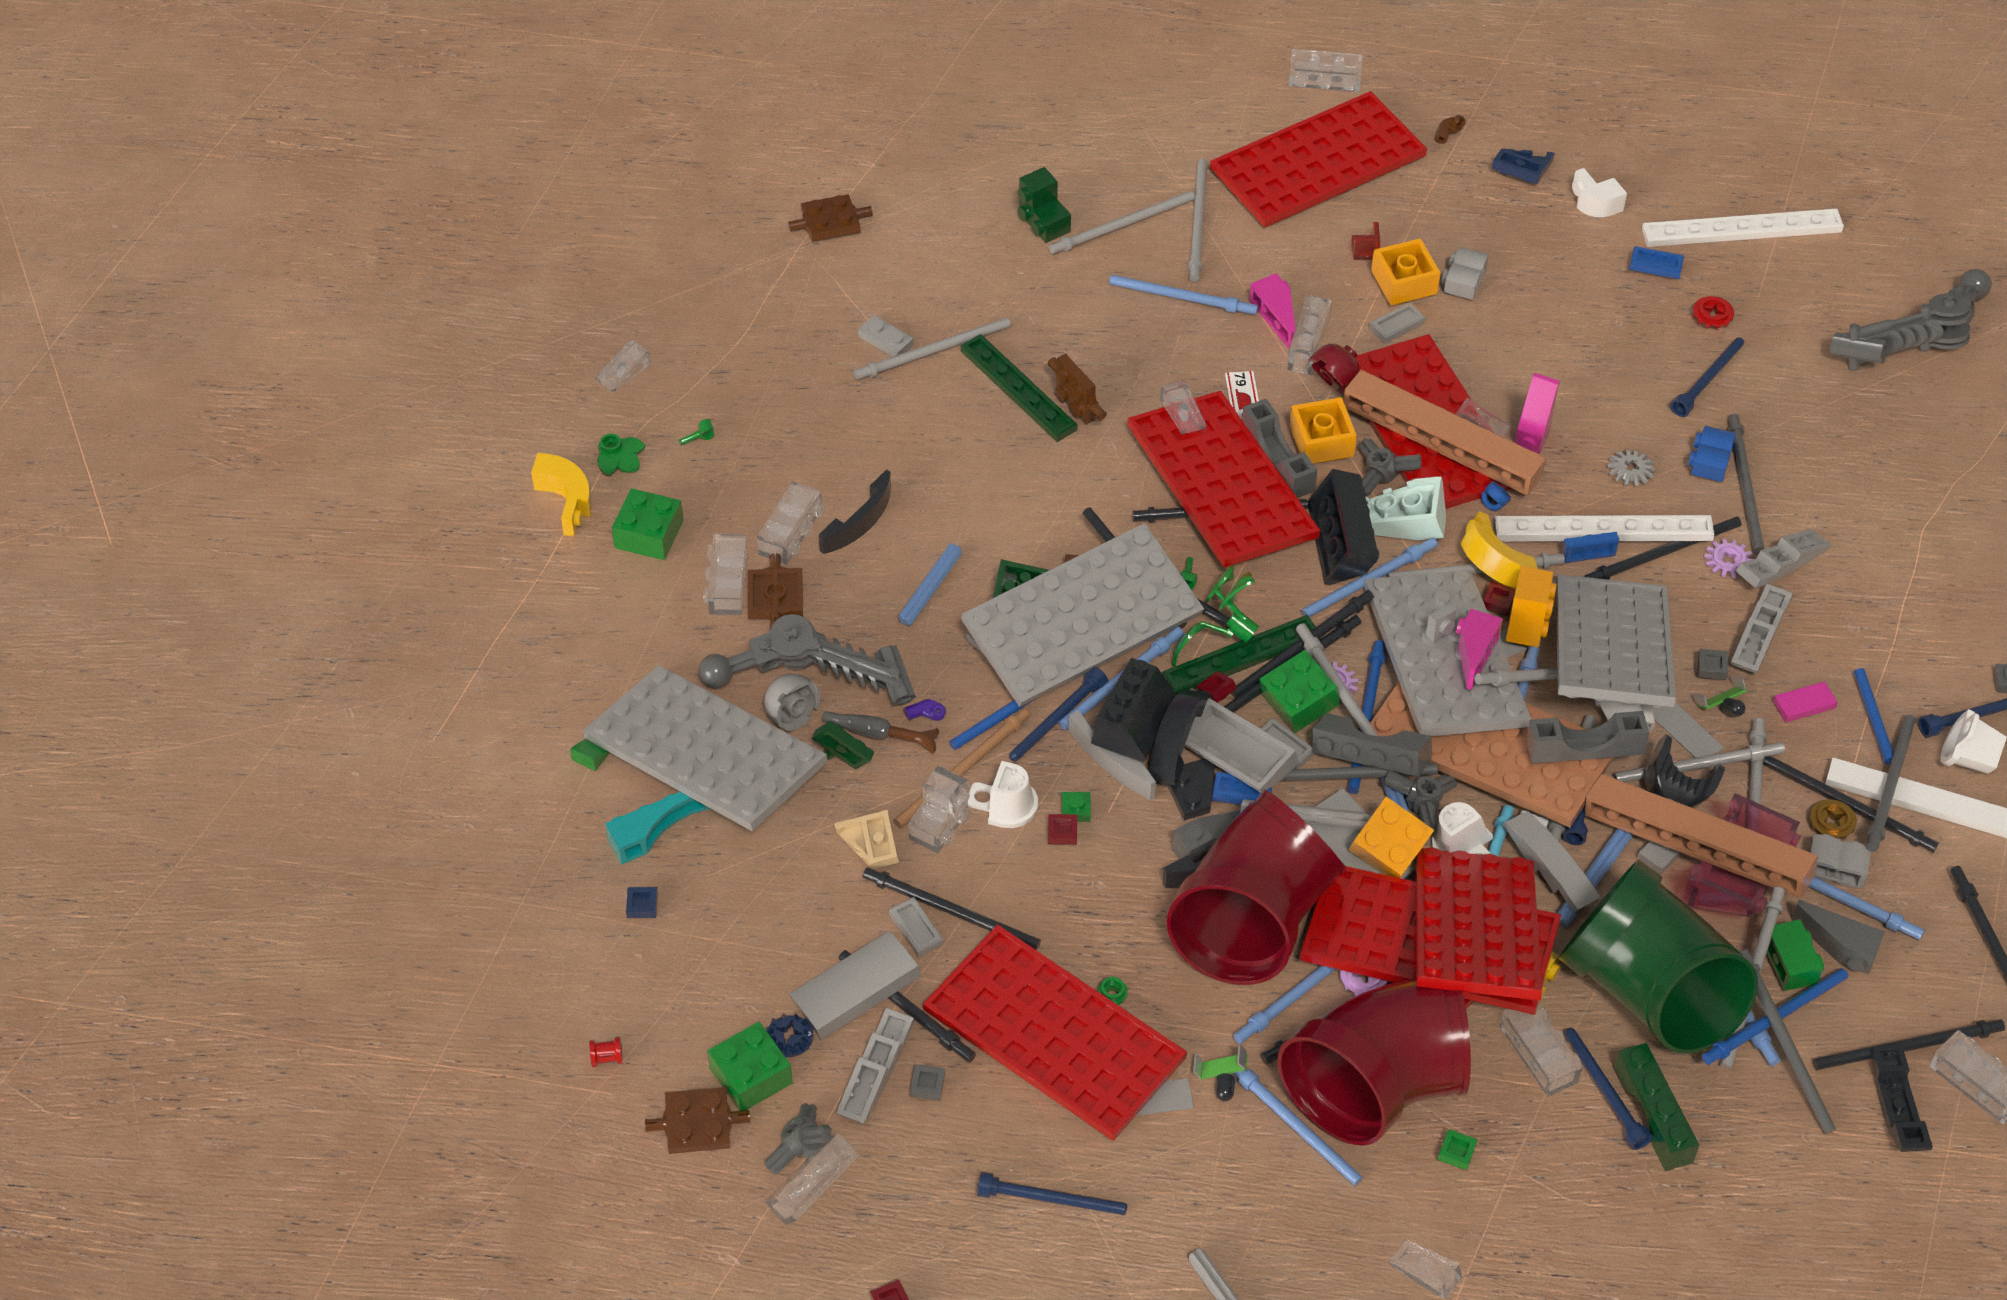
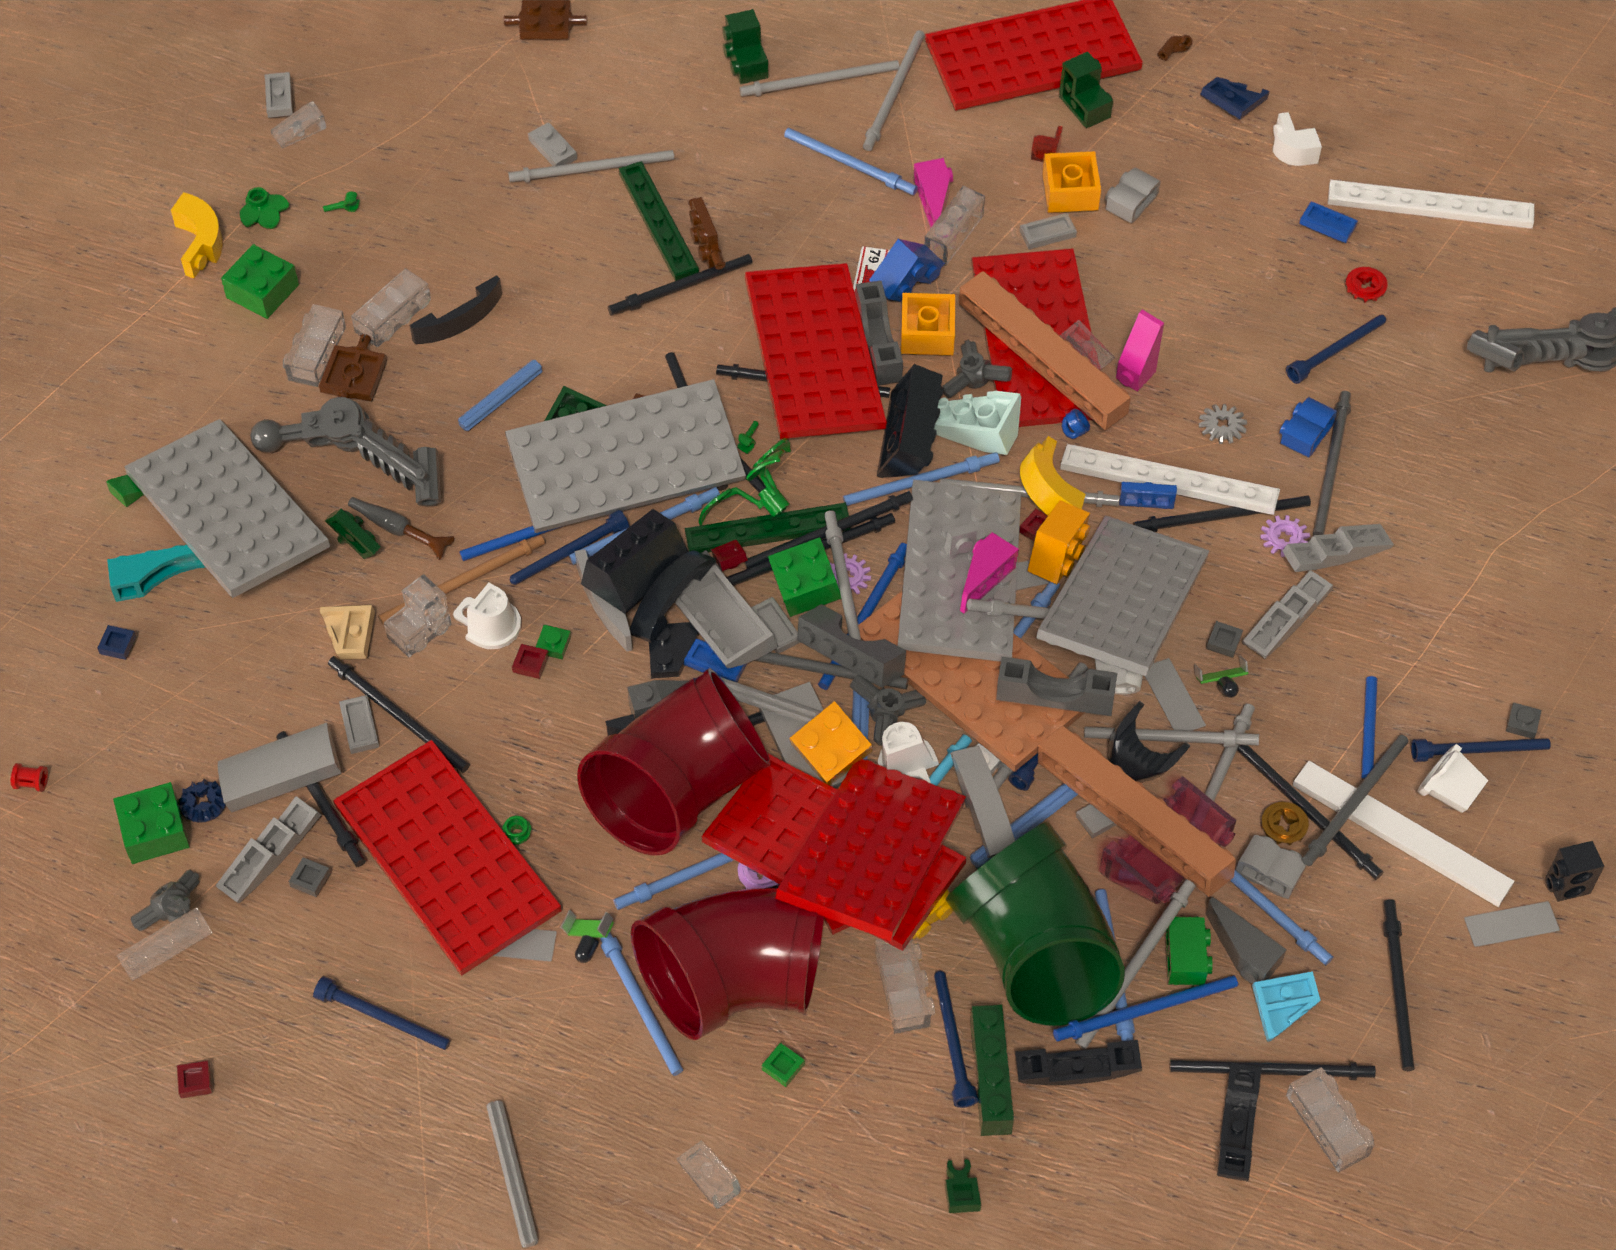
camera: 15 degrees right, 5 degrees up
(591, 340) = (278, 94): none -> light grey plate
(697, 1120) = (87, 862): reddish brown plate -> none
(791, 701) = (323, 481): light grey cylinder -> none
(926, 708) = (450, 515): dark purple arm -> none
(1028, 467) = (635, 301): none -> black bar
(1182, 406) = (799, 272): clear slope -> none
(1280, 383) = (905, 266): none -> blue brick
(1335, 365) = (964, 259): dark red cylinder -> none
(1381, 185) = (1082, 90): none -> dark green brick
(1670, 1225) = (960, 1190): none -> dark green plate
(1734, 1084) = (1078, 1066): none -> black slope
(1791, 1051) = (1133, 960): dark grey bar -> none
(1805, 702) = (1304, 697): dark pink tile -> none
(1897, 980) = (1284, 1001): none -> medium azure wing

